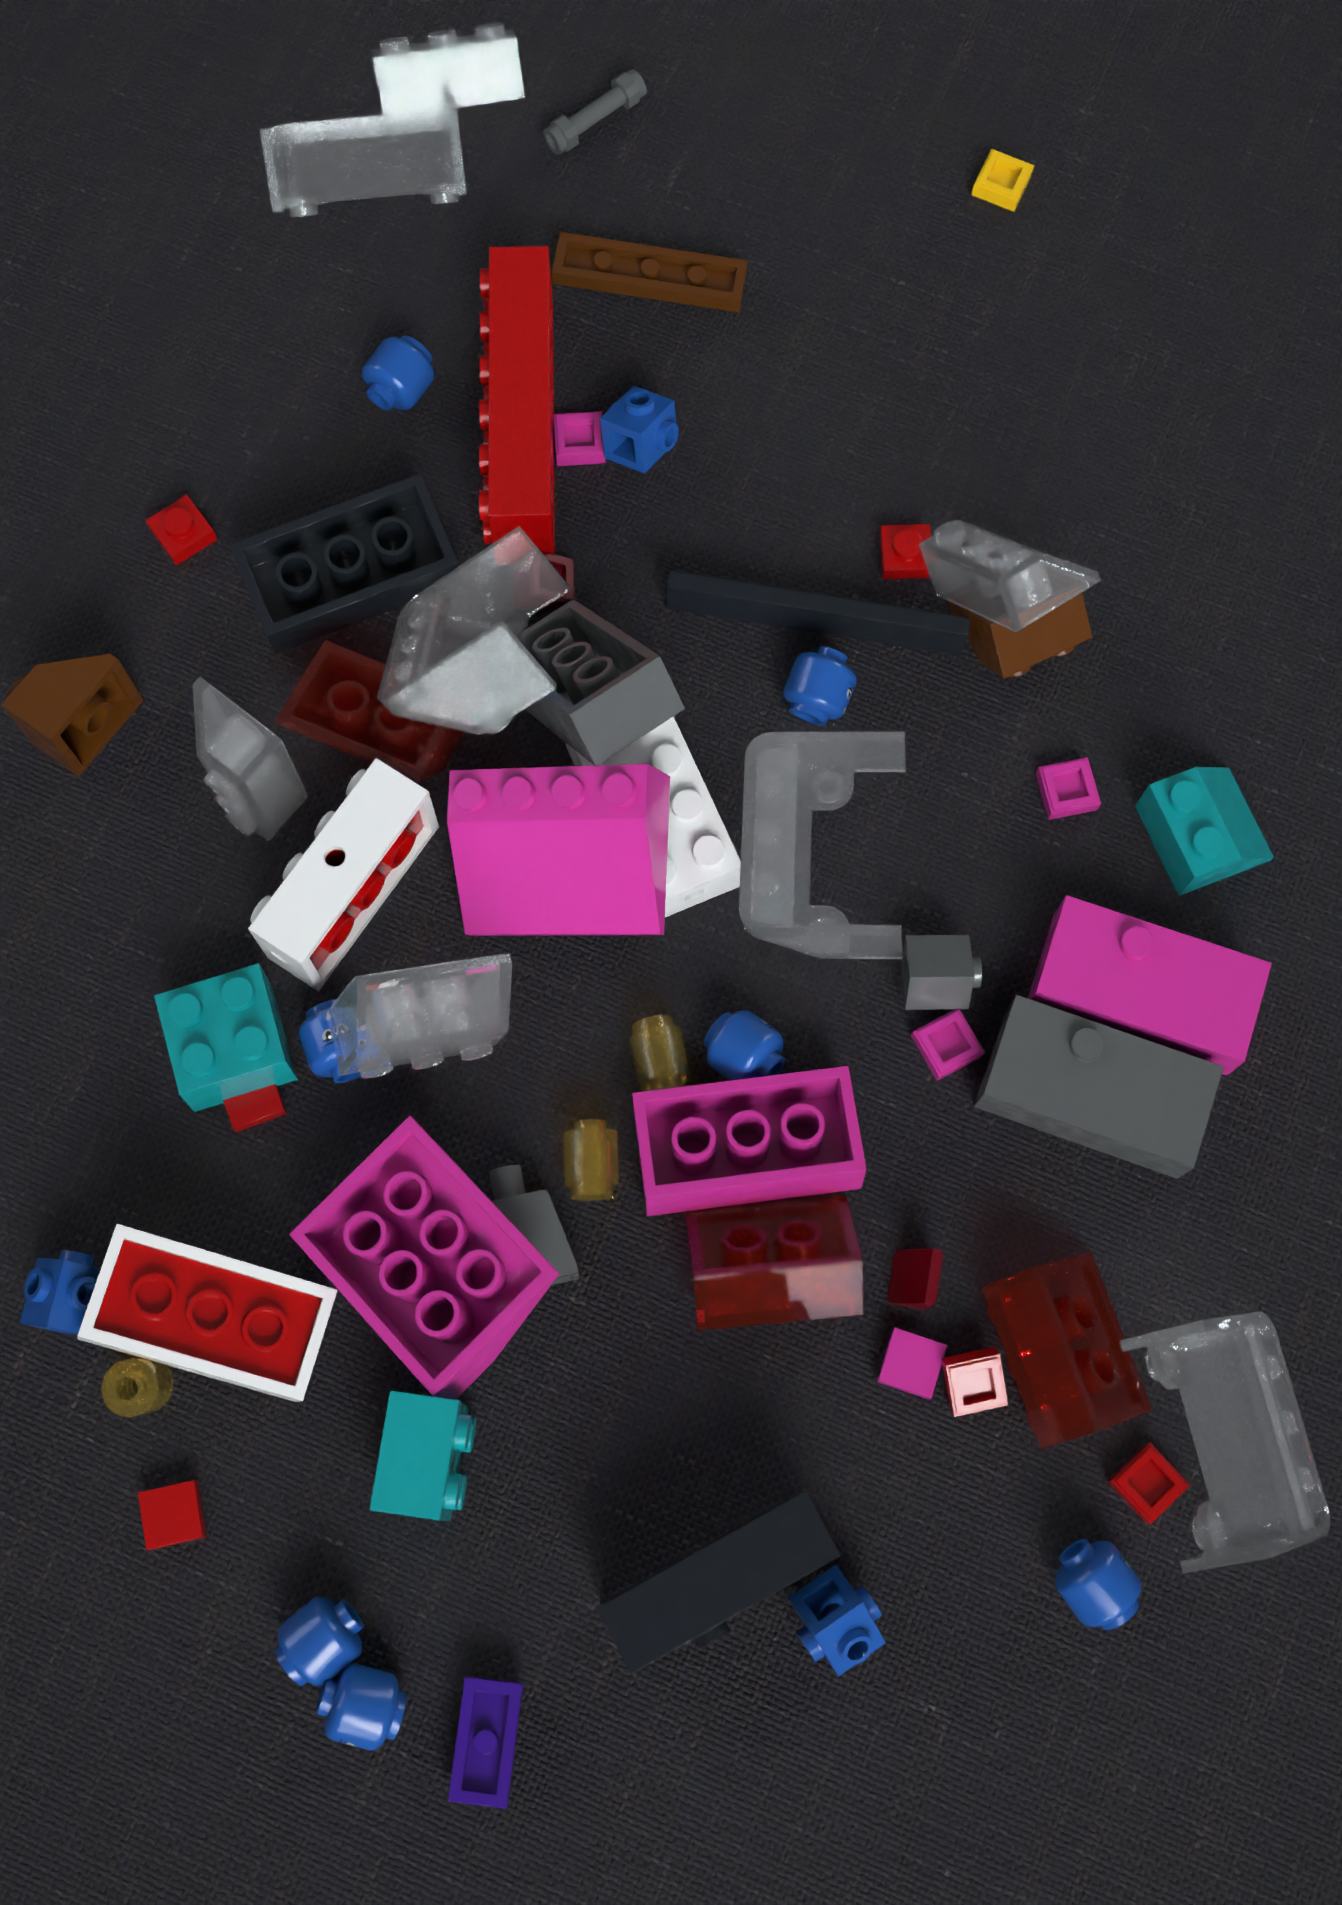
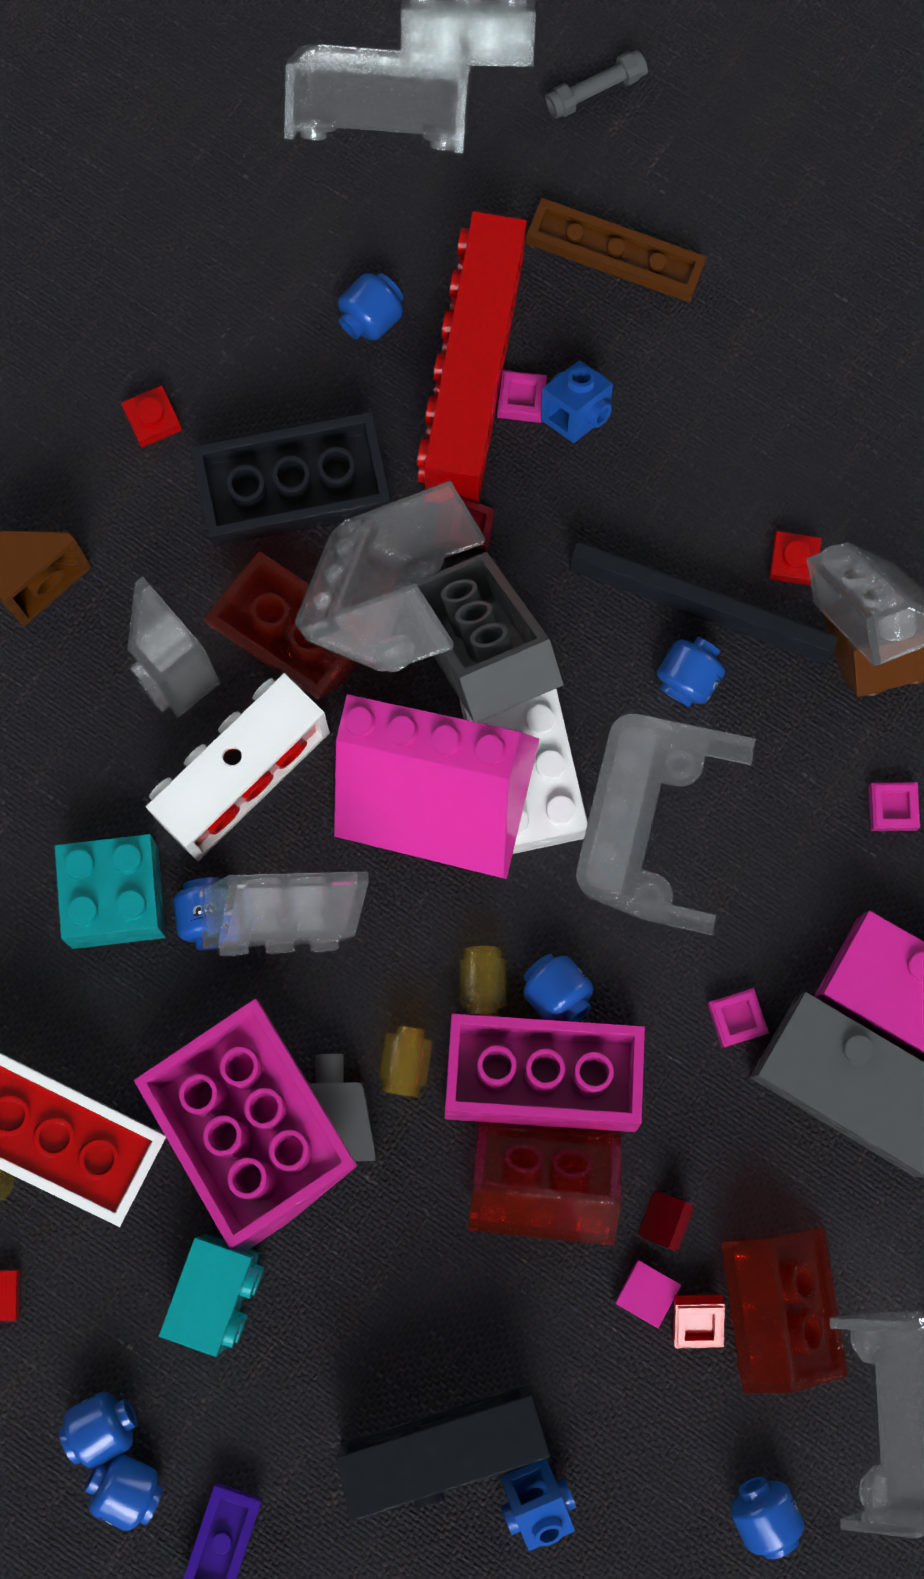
camera: 10 degrees right, 5 degrees up
(254, 1107) = (124, 955): red tile -> none
(939, 972) = (743, 954): dark grey brick -> none
(1148, 1483) = (830, 1438): red tile -> none

